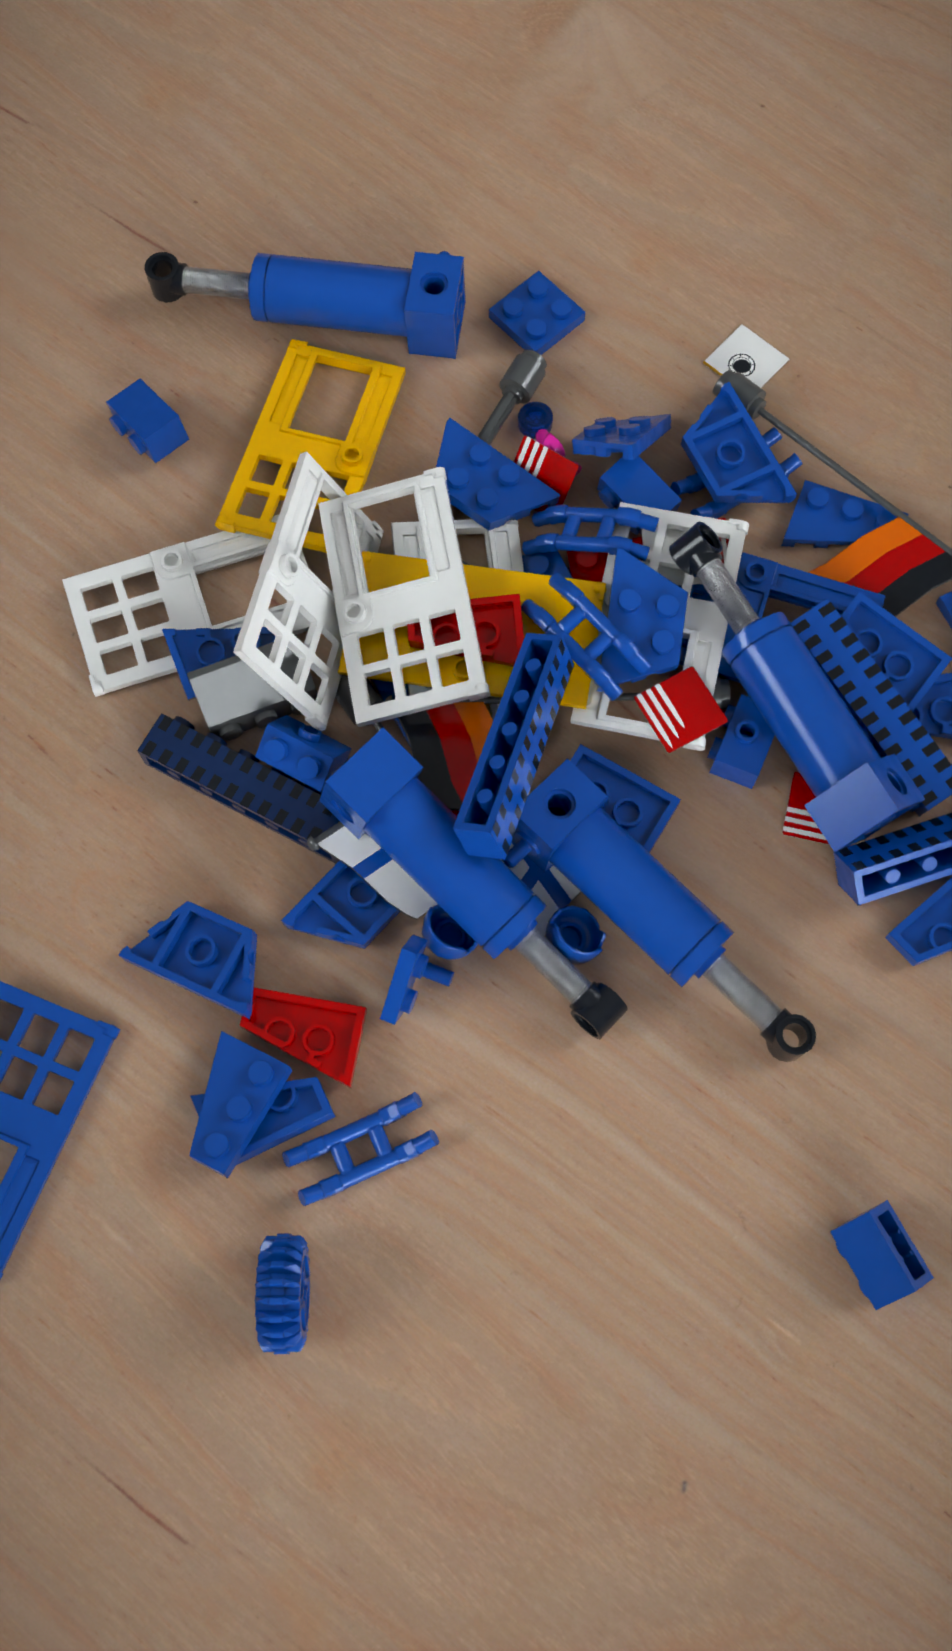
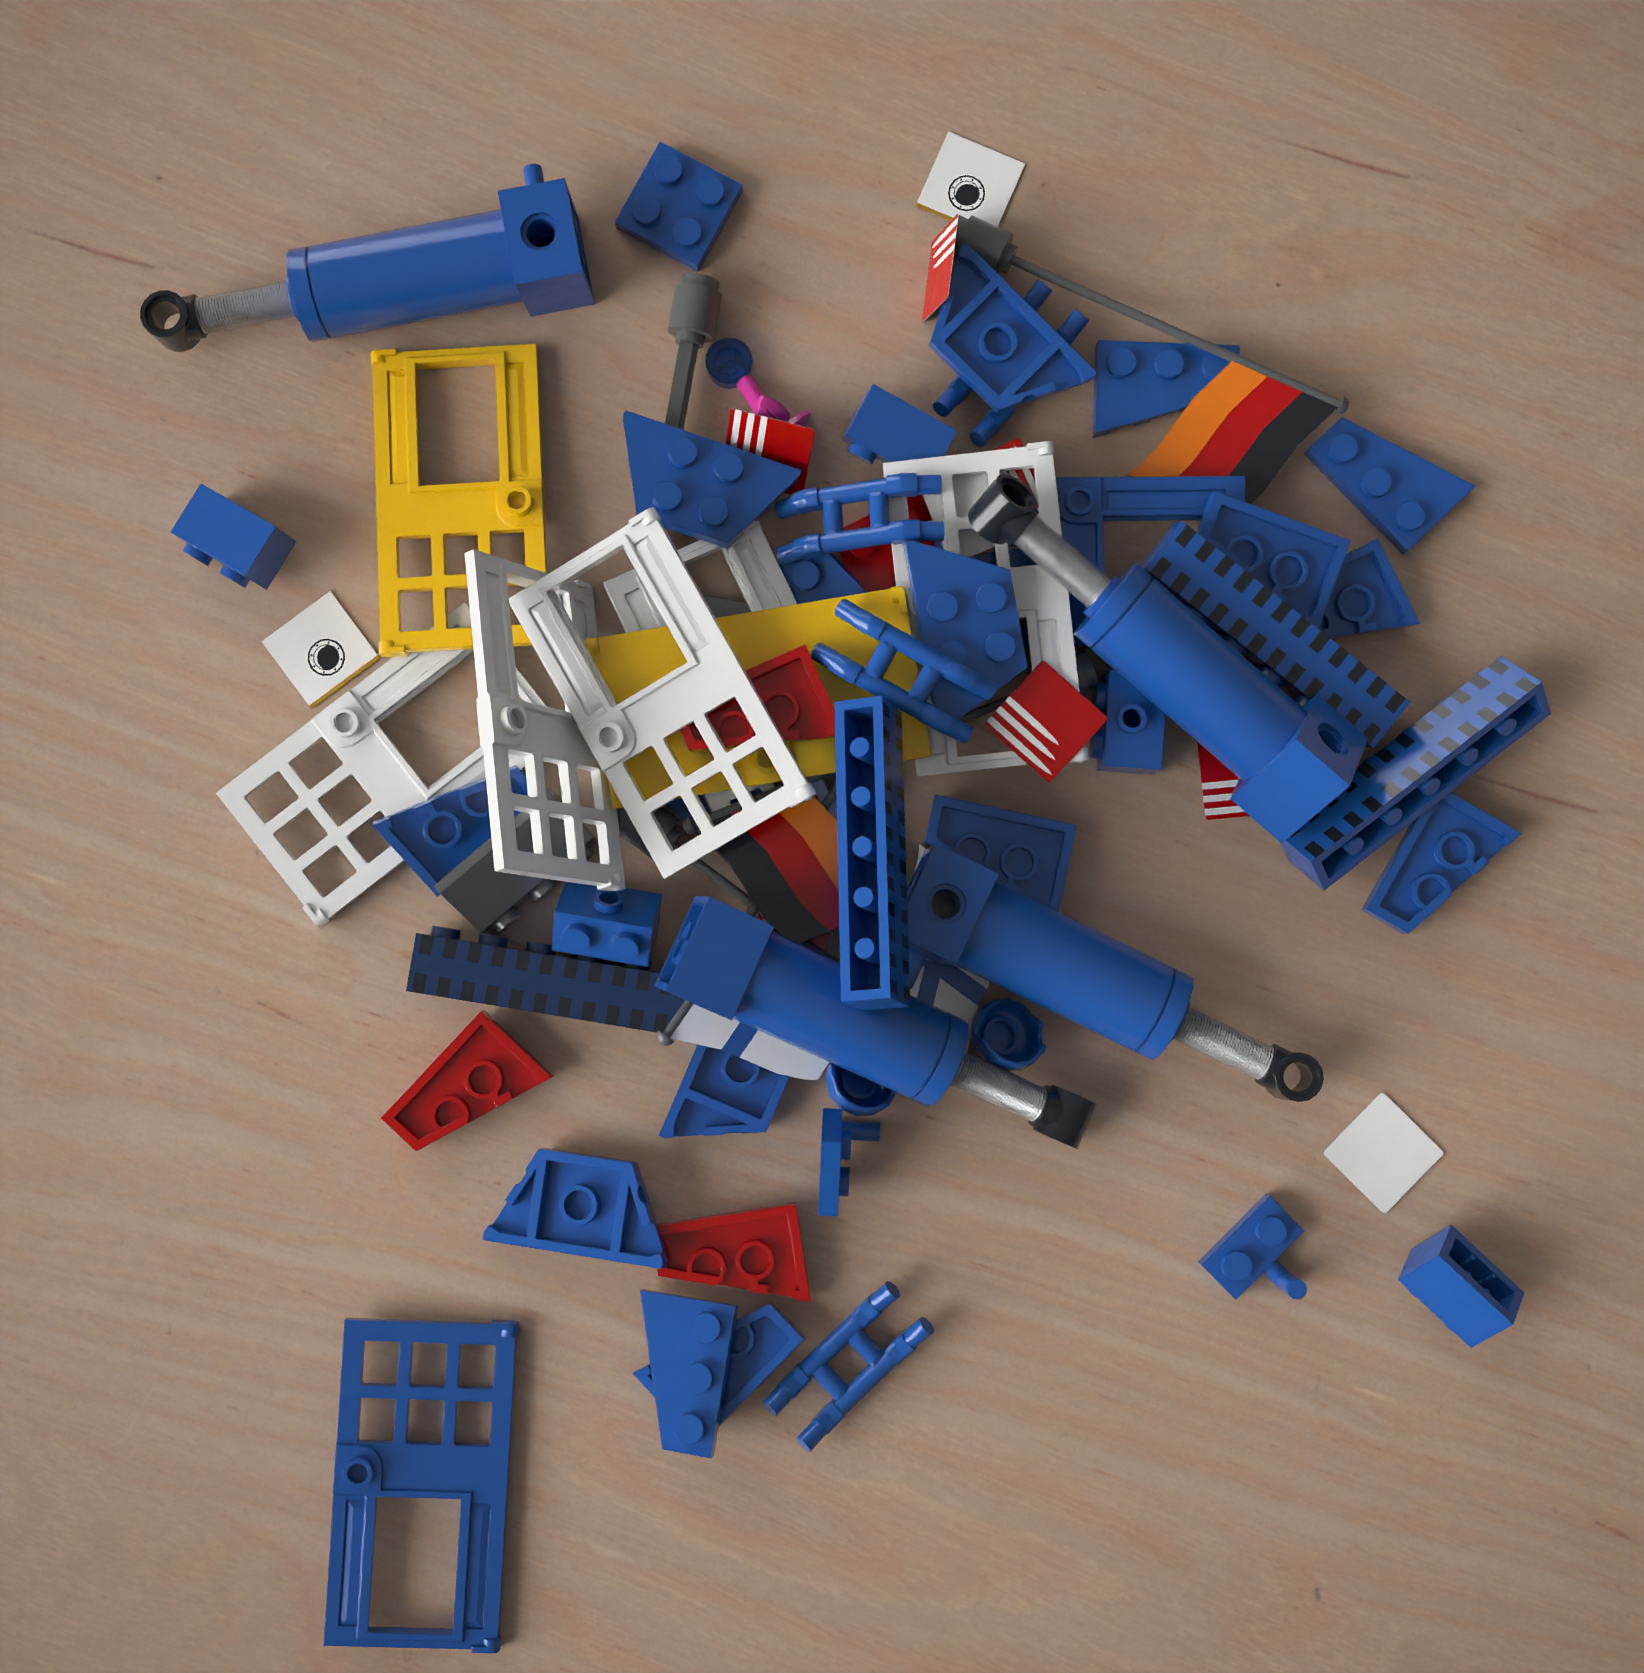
camera: 20 degrees left, 15 degrees up
(152, 837) = (465, 1082): none -> red wing
(176, 516) = (320, 649): none -> white sticker
(282, 1294) = (825, 1562): blue gear -> none
(626, 436) = (853, 365): blue wing -> none
(705, 397) = (940, 268): none -> sticker
(719, 1171) = (1253, 1249): none -> blue plate
(848, 1133) = (1383, 1152): none -> white sticker

